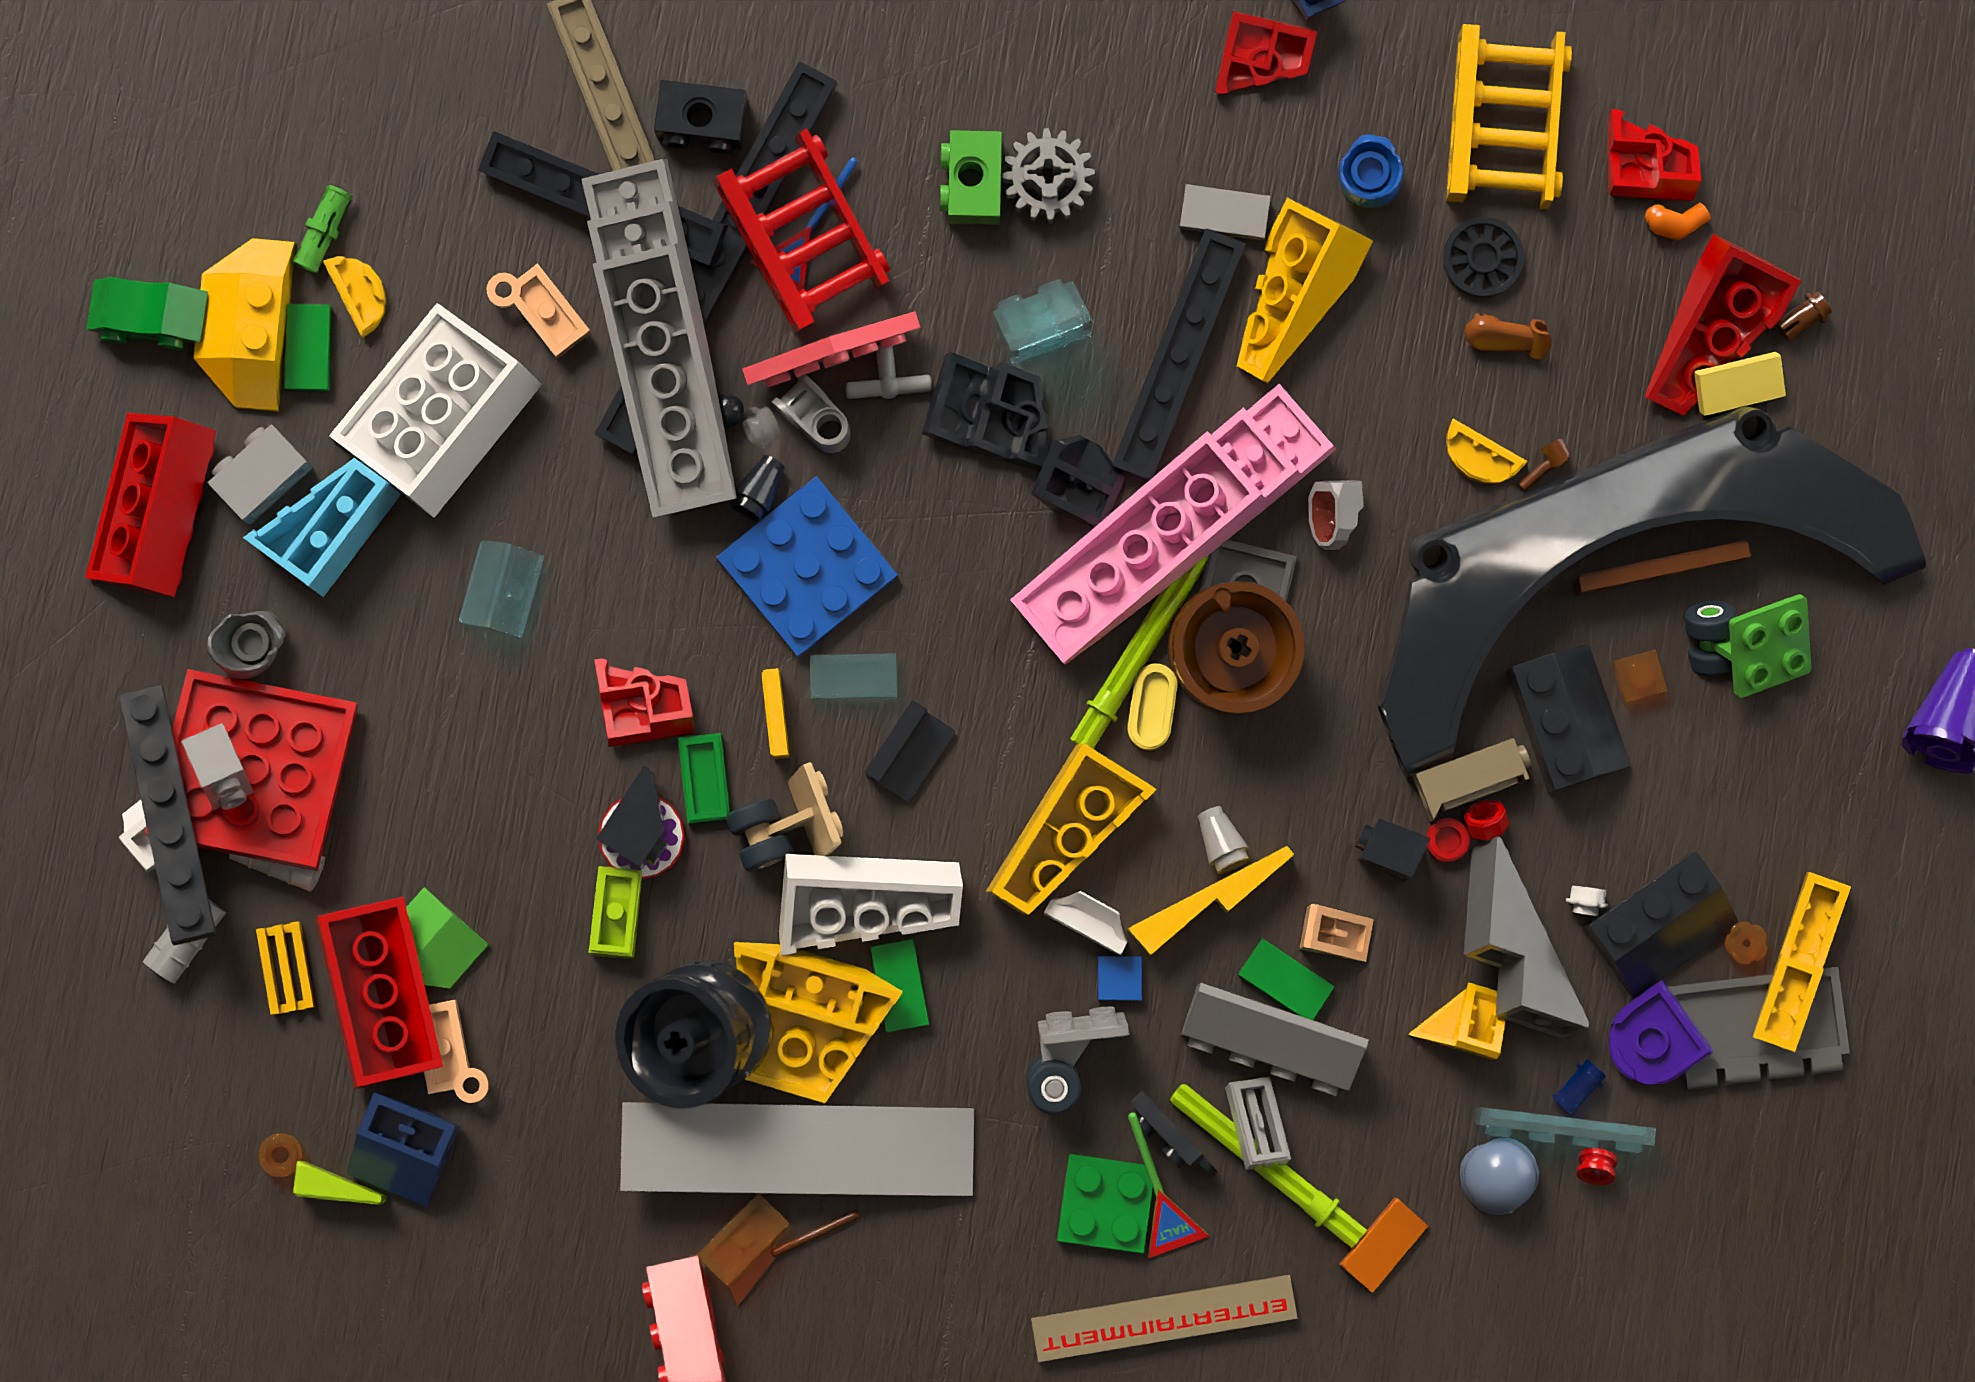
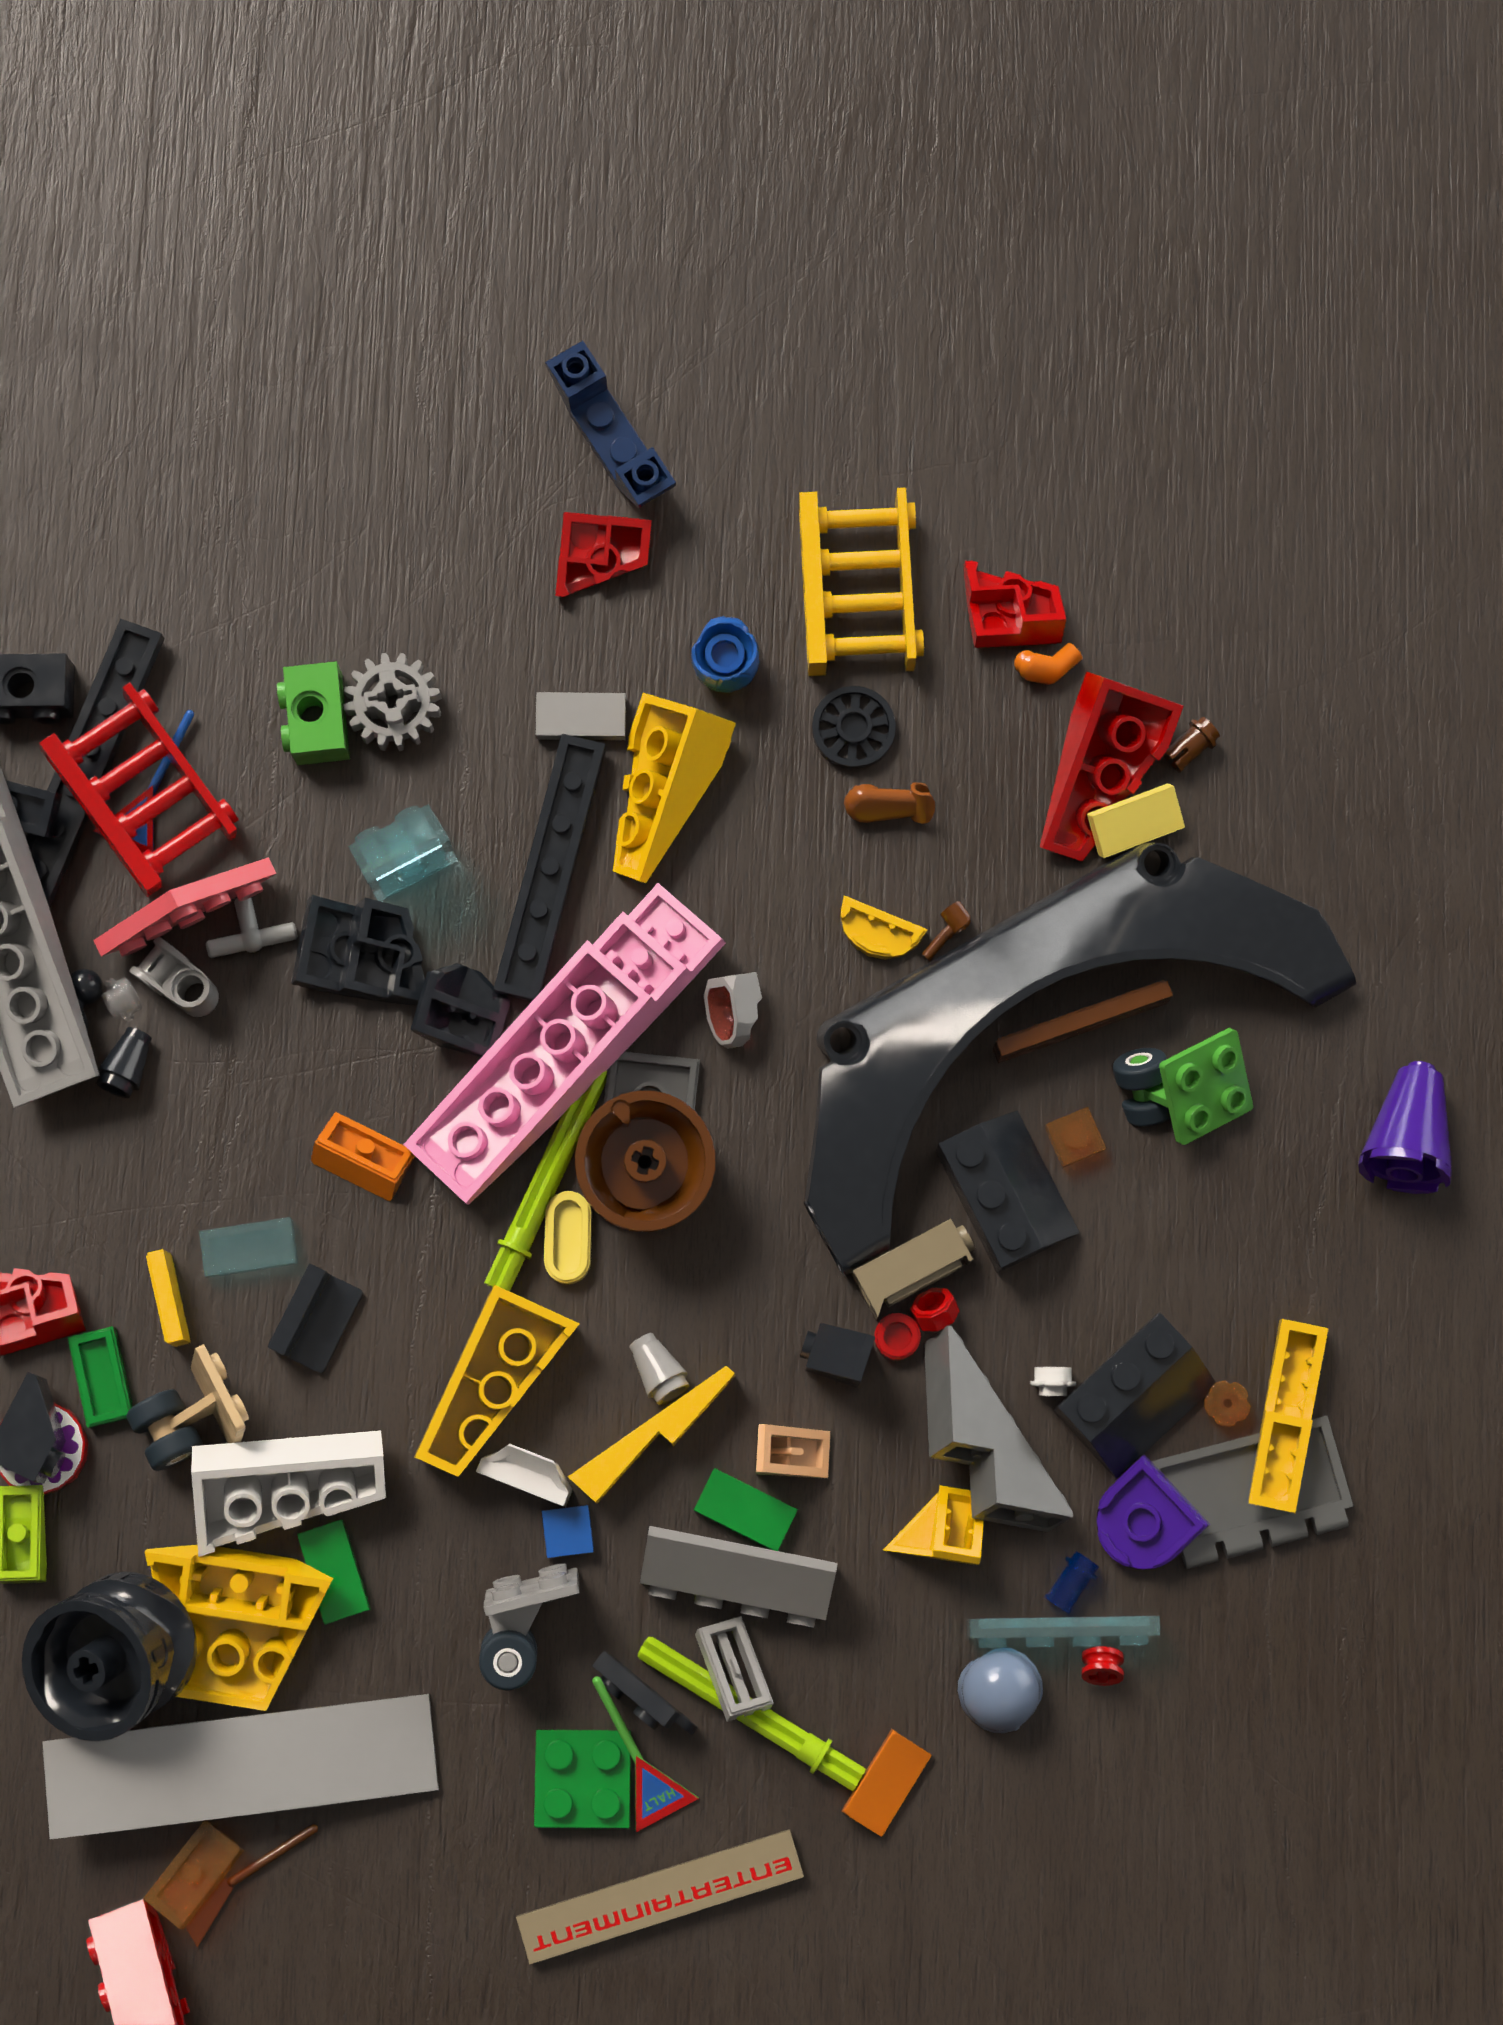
camera: 10 degrees left, 5 degrees down
(807, 566) = (186, 1139): blue plate -> none
(969, 605) = (362, 1156): none -> orange slope

